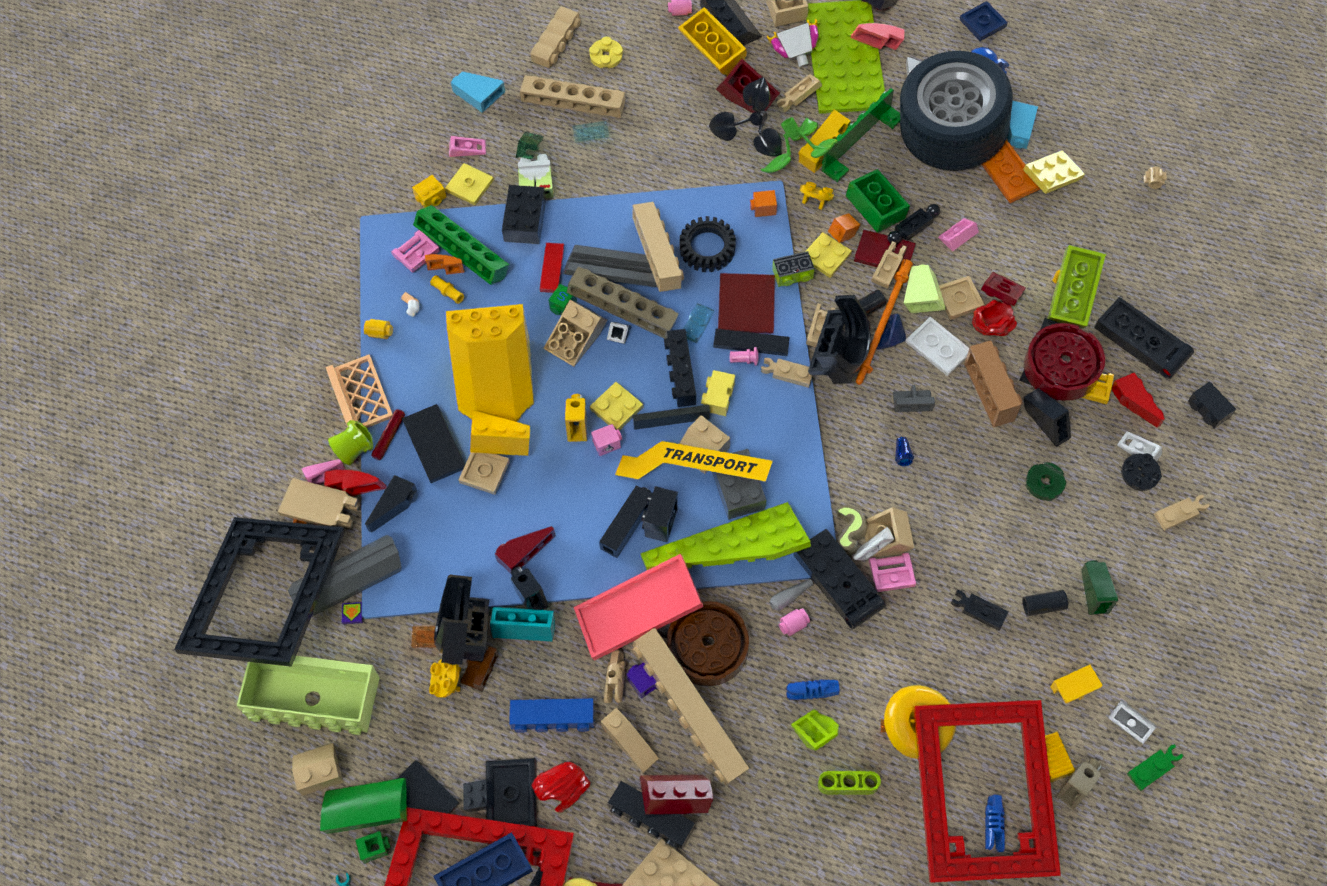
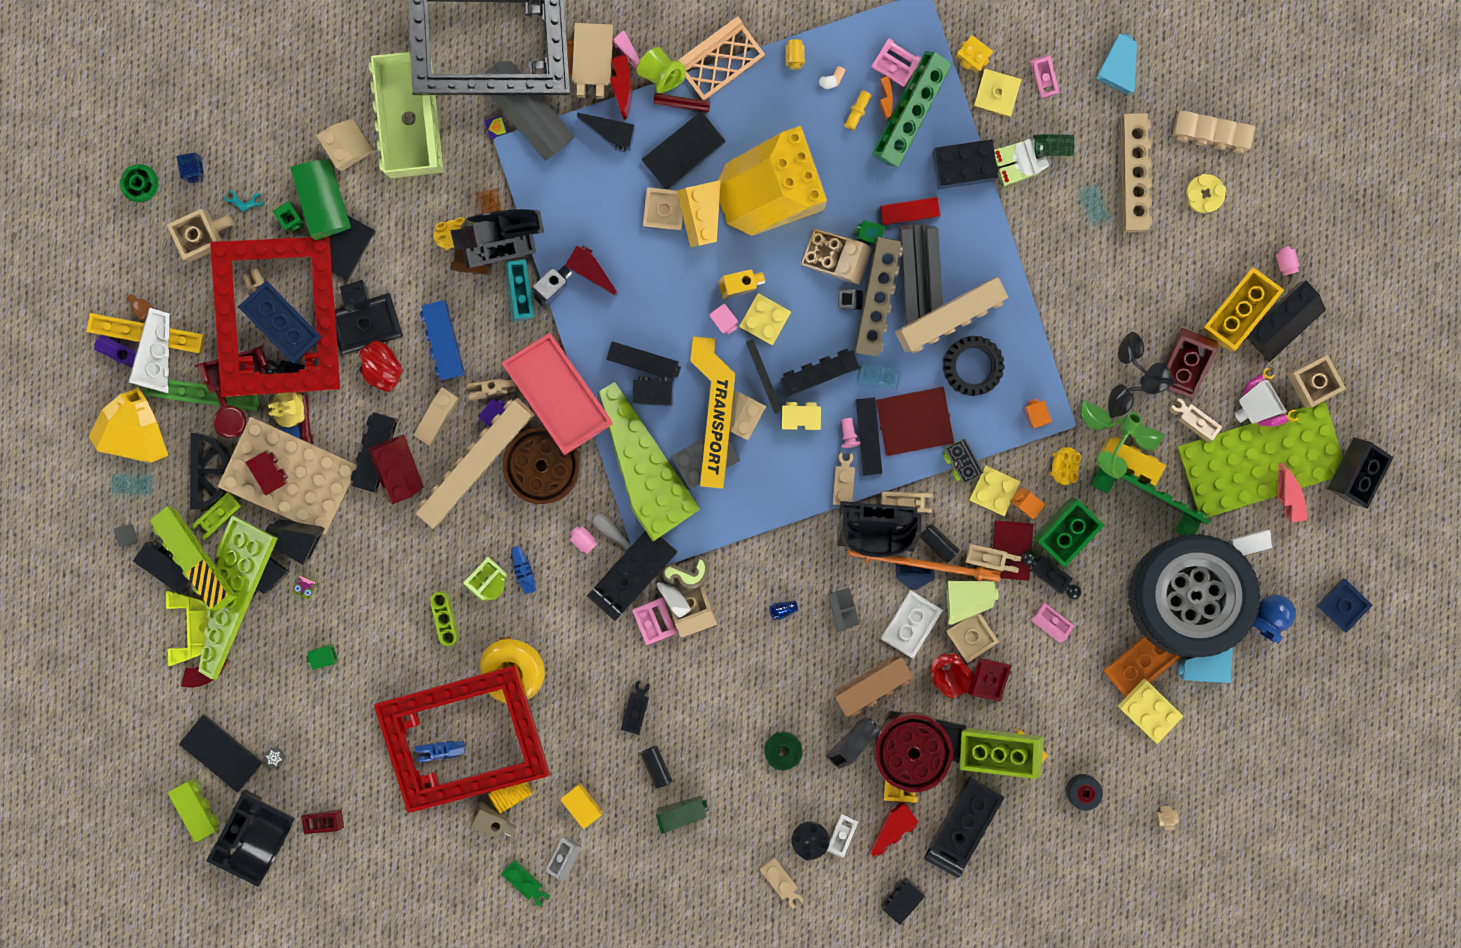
camera: 80 degrees right, 25 degrees up
(1122, 236) = (1081, 785): none -> black wheel

